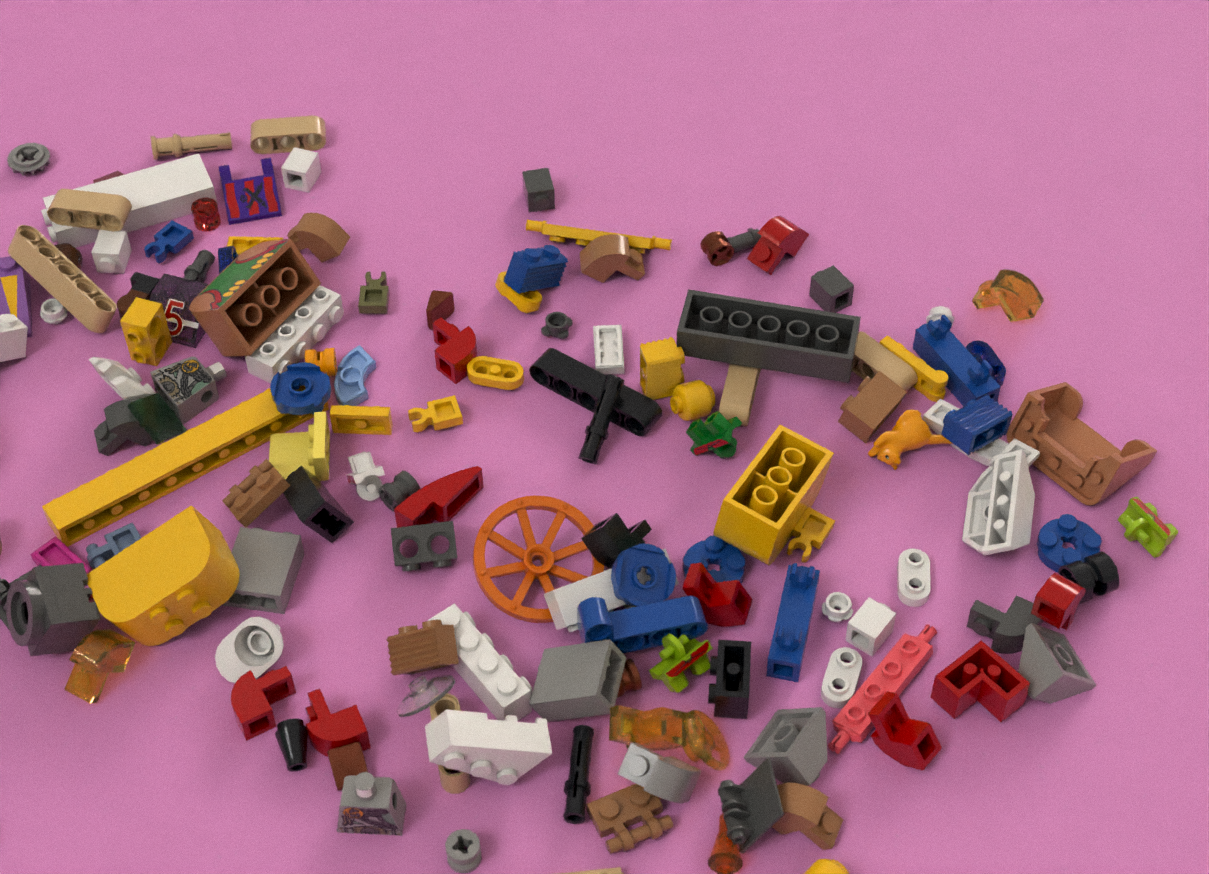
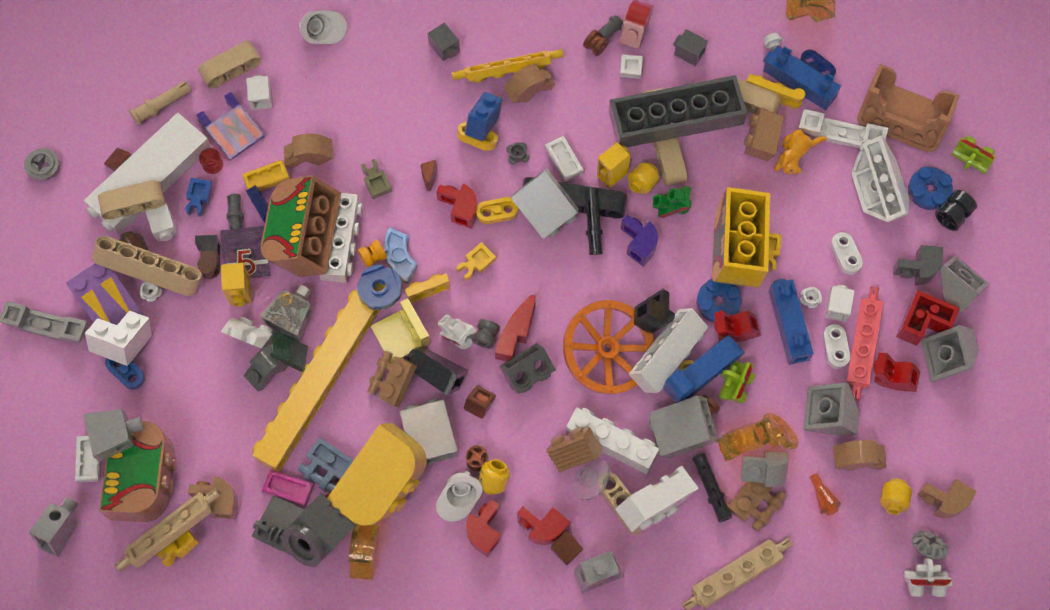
camera: 25 degrees left, 20 degrees up
(292, 740) = (523, 548): black cone -> none
(296, 616) = (474, 454): none -> copper wheel
(307, 645) = (494, 477): none -> yellow head
(346, 563) = (479, 401): none -> copper slope
(410, 131) = (323, 27): none -> white piece
(463, 860) = (667, 575): light grey wheel -> none
(551, 376) = (545, 204): none -> light grey brick
(653, 466) = (644, 239): none -> dark purple brick
(657, 566) = (679, 340): blue plate -> none
(732, 679) = (775, 381): black brick -> none
(746, 285) = (631, 66): none -> white plate
(751, 806) = (832, 465): dark grey hinge -> none
(976, 424) = (839, 122): blue brick -> none
(996, 737) = (950, 352): none -> light grey slope
(1058, 601) = (949, 239): red brick -> none

